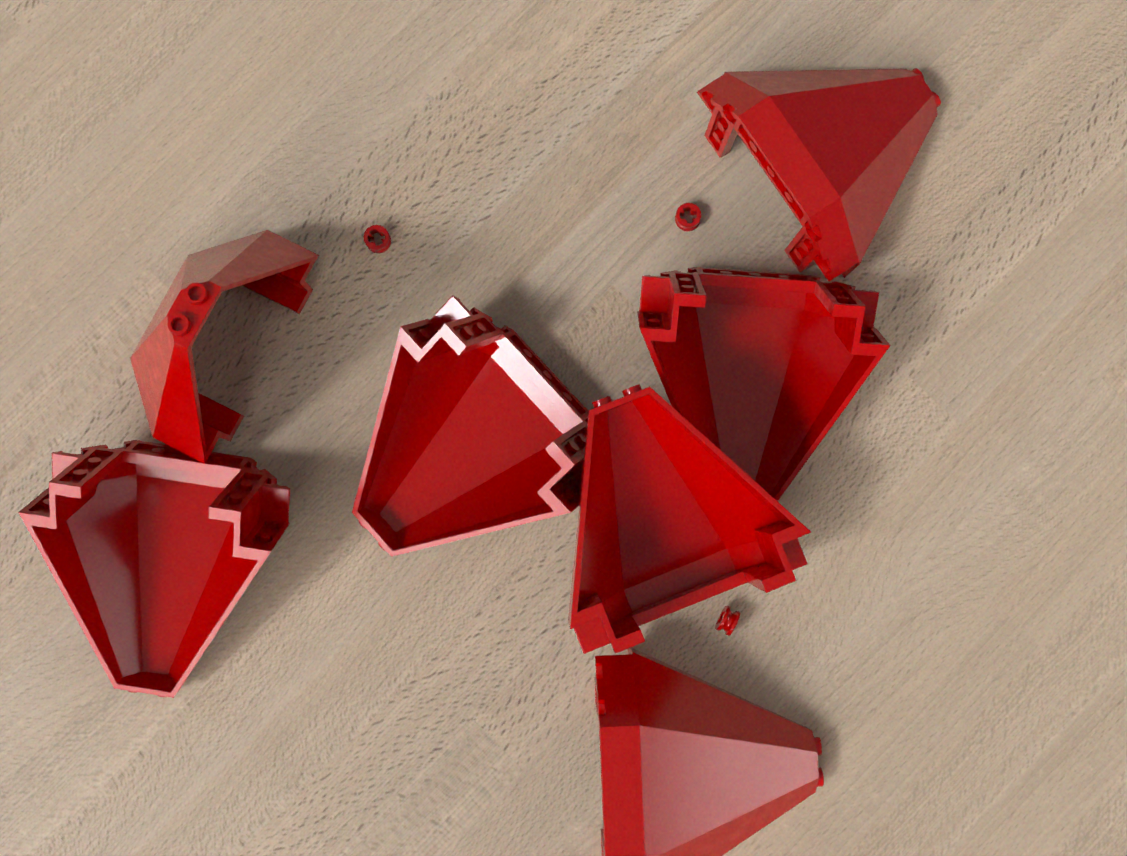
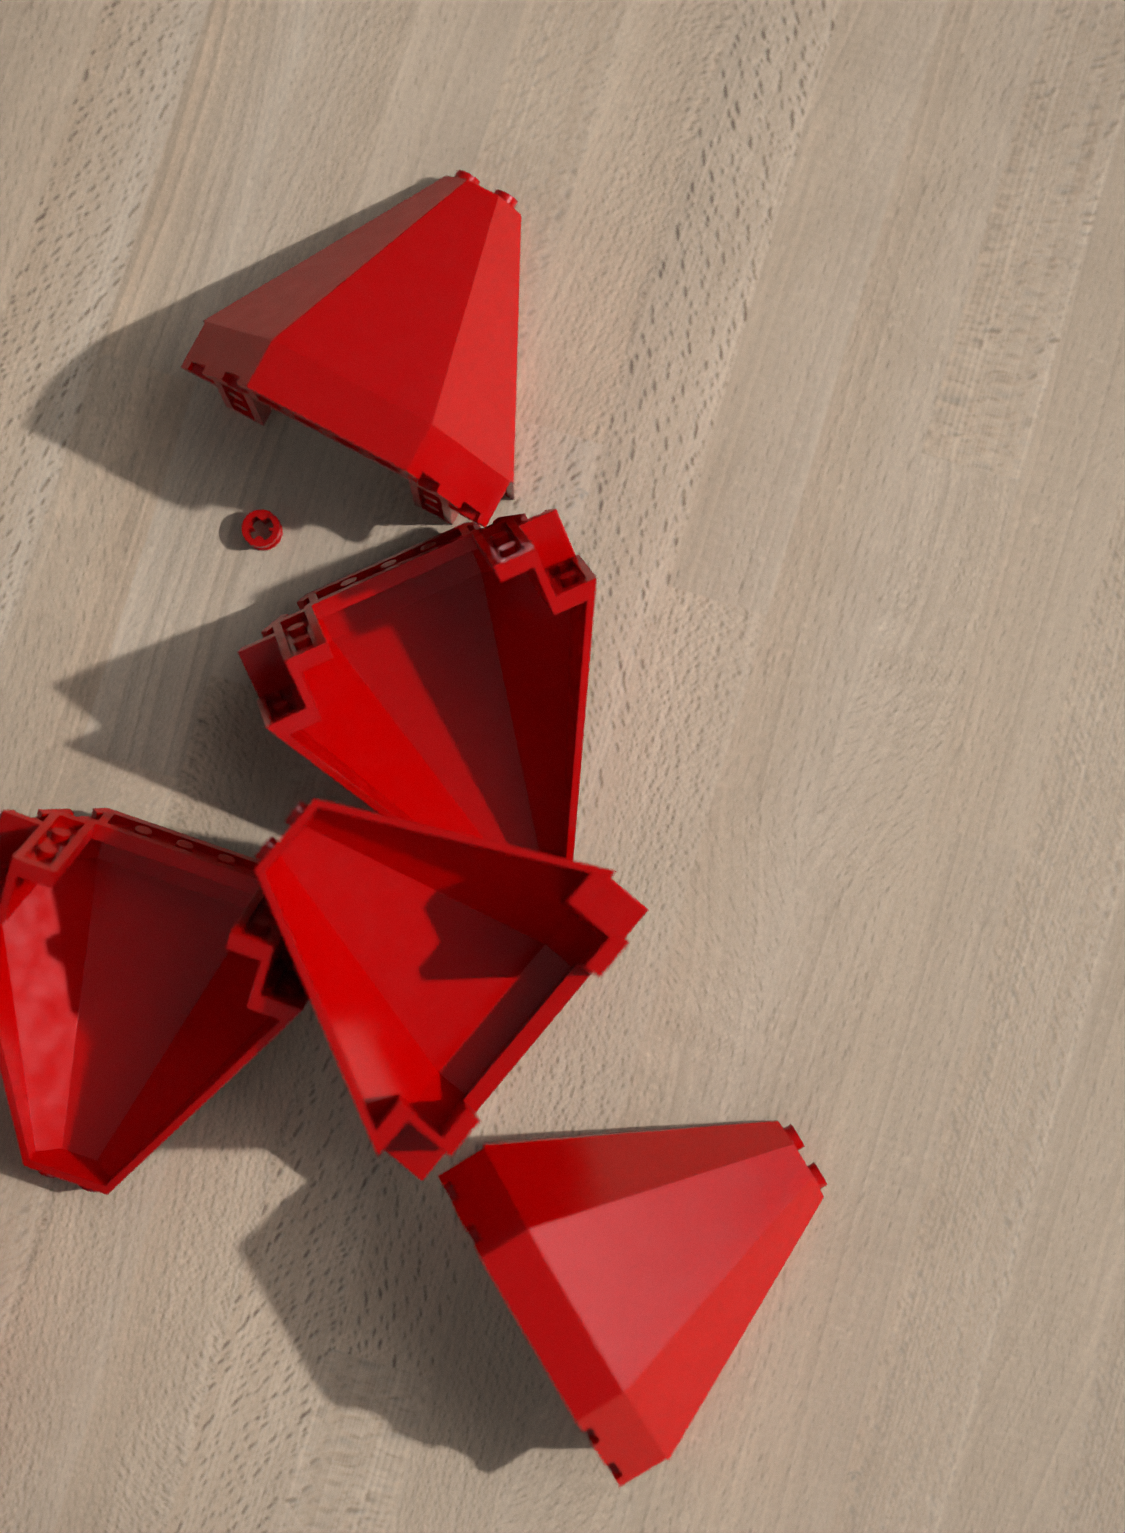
camera: 30 degrees left, 0 degrees up
(727, 620) = (594, 1038): red bush -> none

